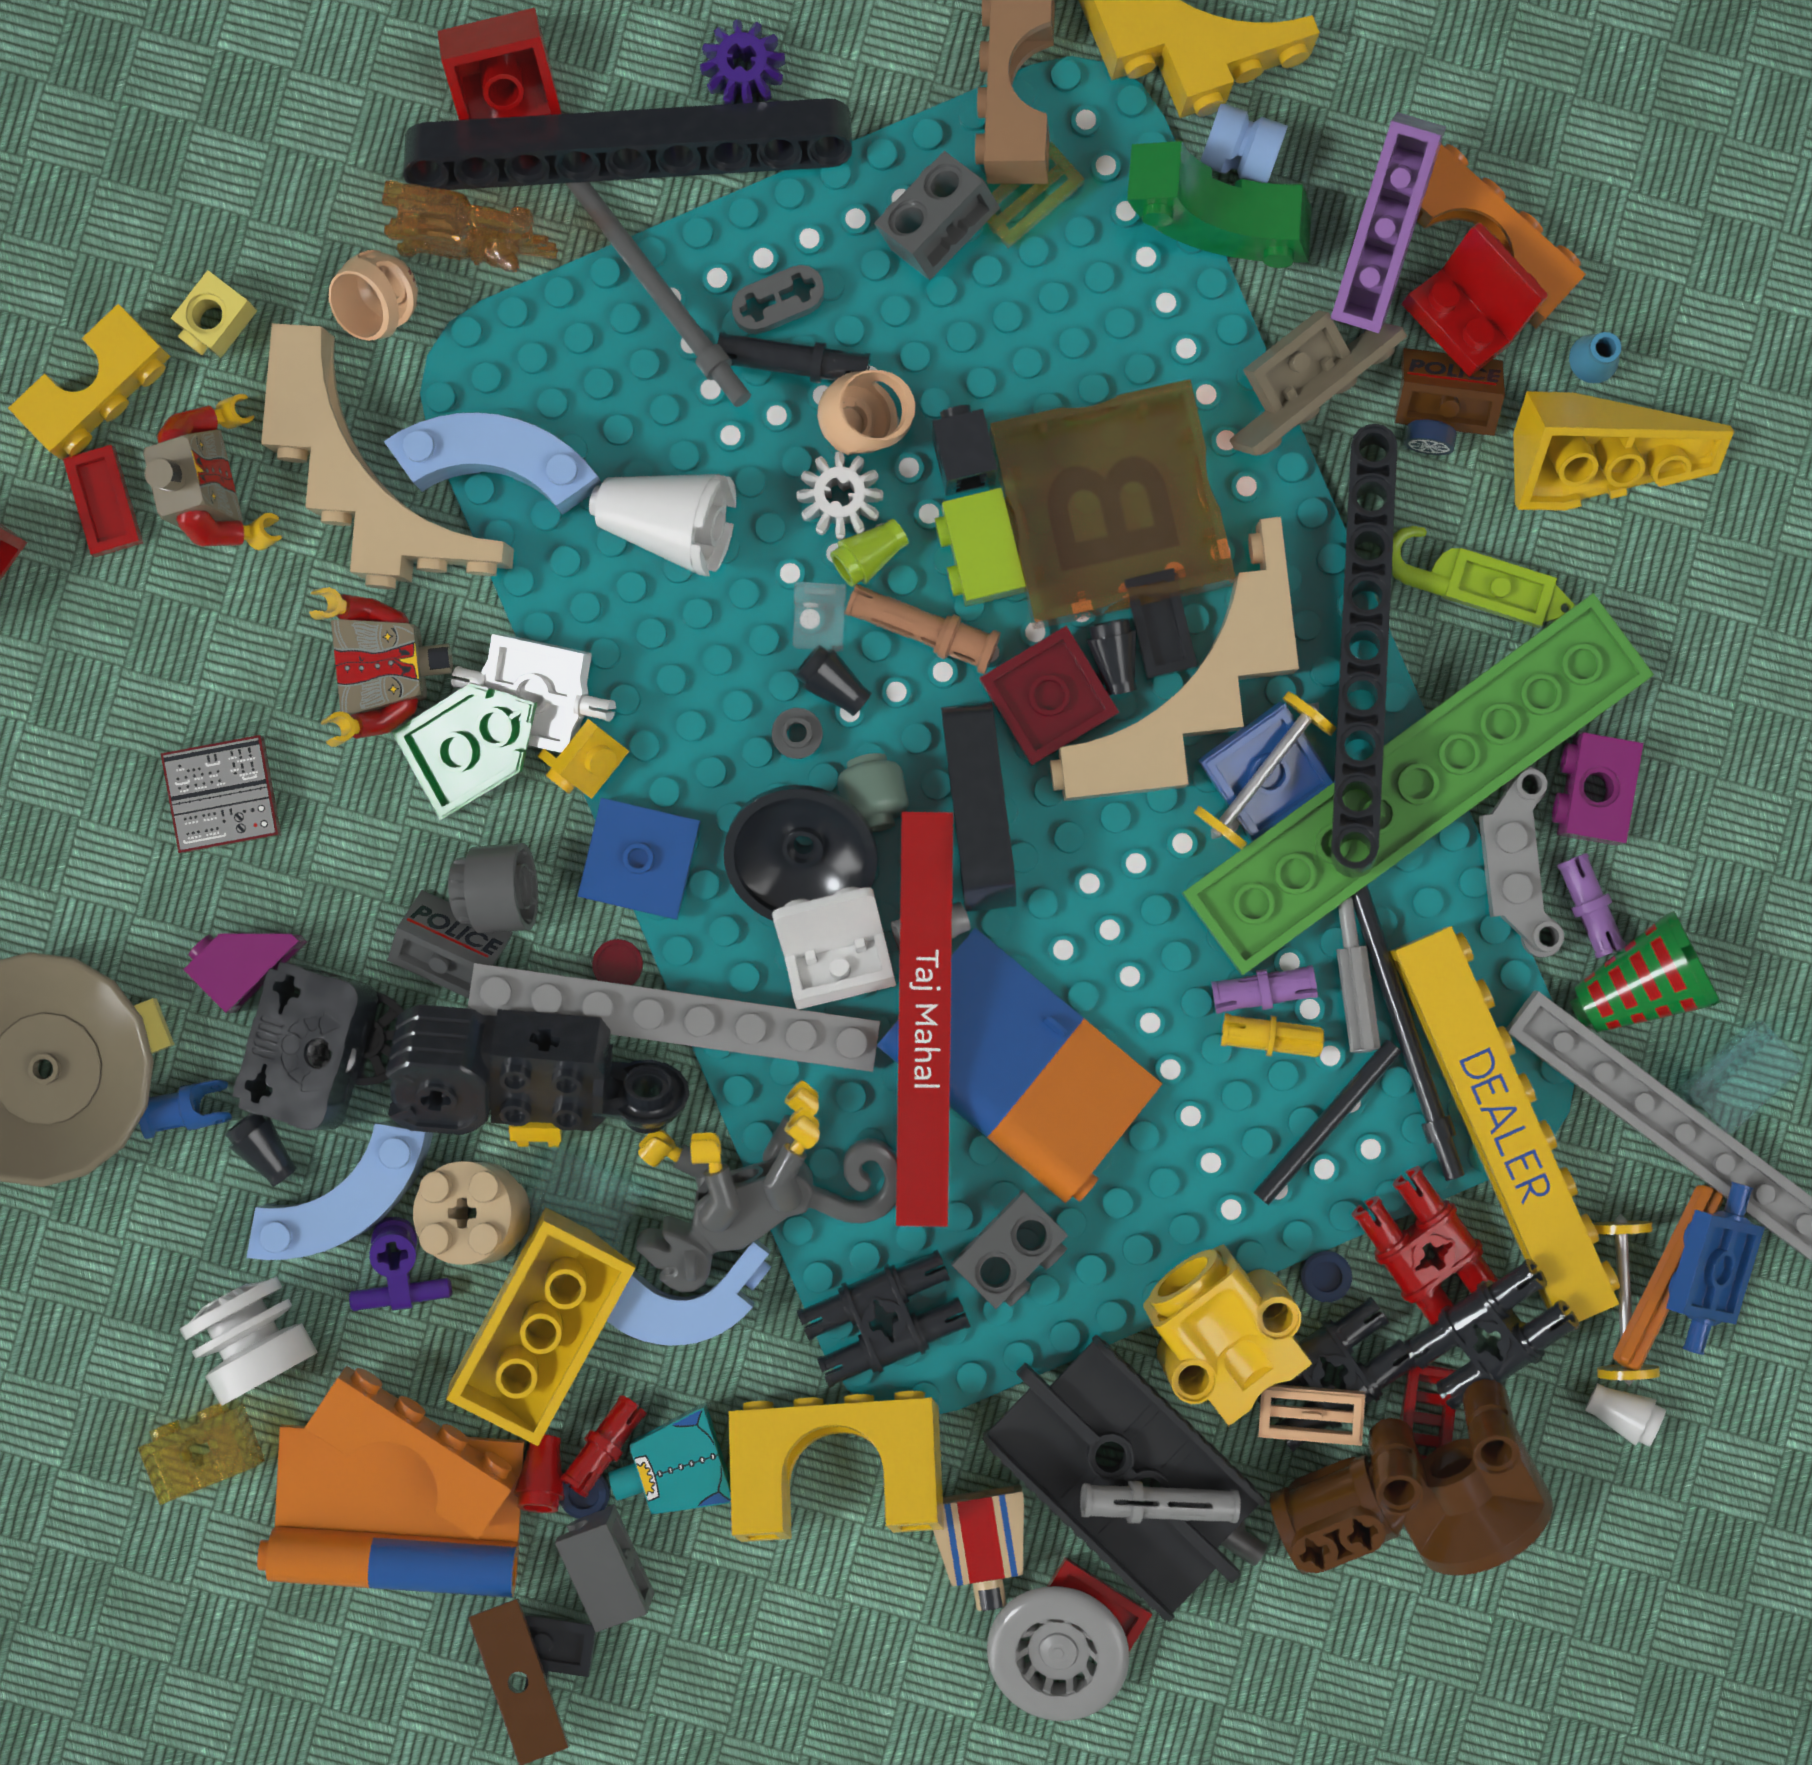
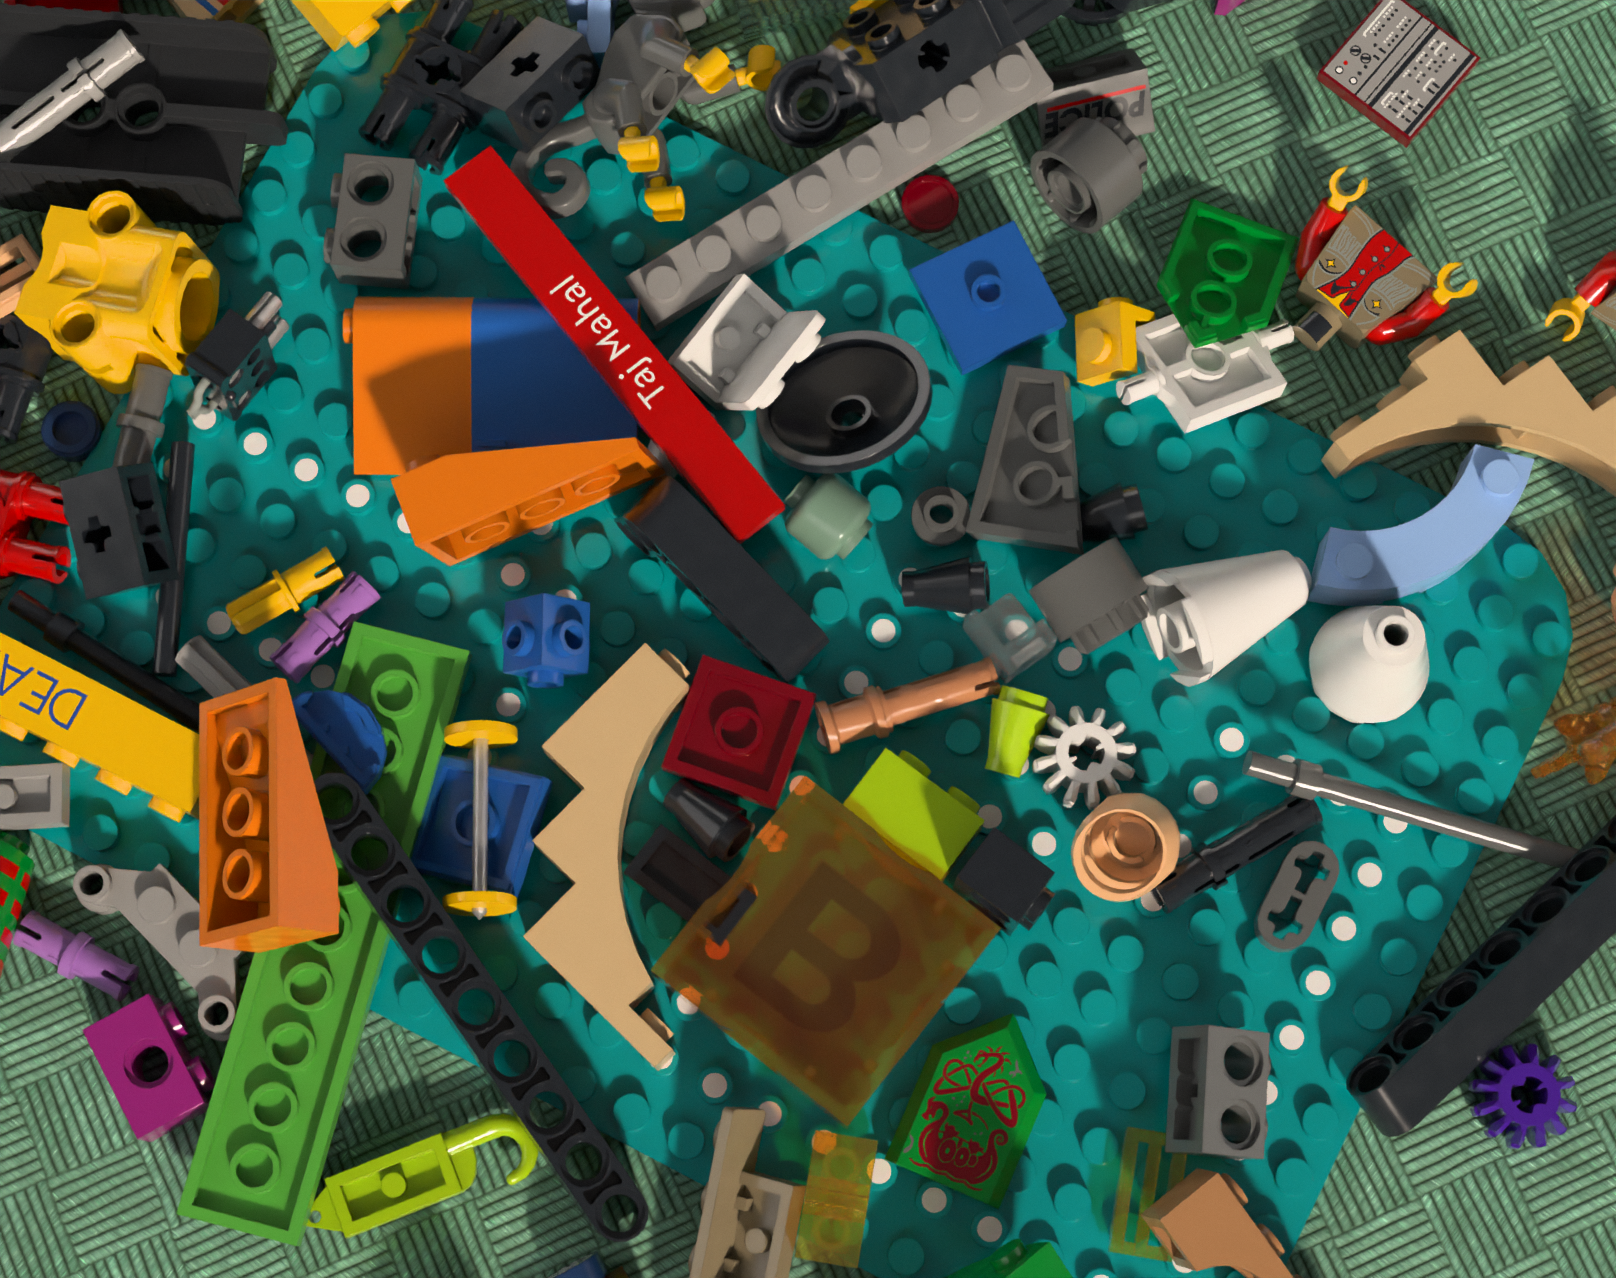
camera: 140 degrees right, 10 degrees down
(600, 408) = (1370, 663): none -> white cone
(689, 643) = (1113, 514): none -> black cone
(712, 715) = (1030, 467): none -> dark grey wing
(747, 592) = (1093, 597): none -> dark grey piece
(827, 1257) = (531, 84): none -> black brick
(1098, 335) = (971, 1112): none -> green tile
(1111, 988) = (489, 497): none -> orange slope
(1127, 856) = (546, 639): none -> blue brick
(1183, 1220) = (236, 359): none -> black piece
(1231, 345) = (836, 1199): none -> clear yellow brick
(1280, 1232) = (142, 418): none -> dark grey pin
(1307, 901) = (346, 732): none -> blue tile
(1353, 1160) = (119, 530): none -> black brick
(1415, 869) = (261, 827): none -> orange slope

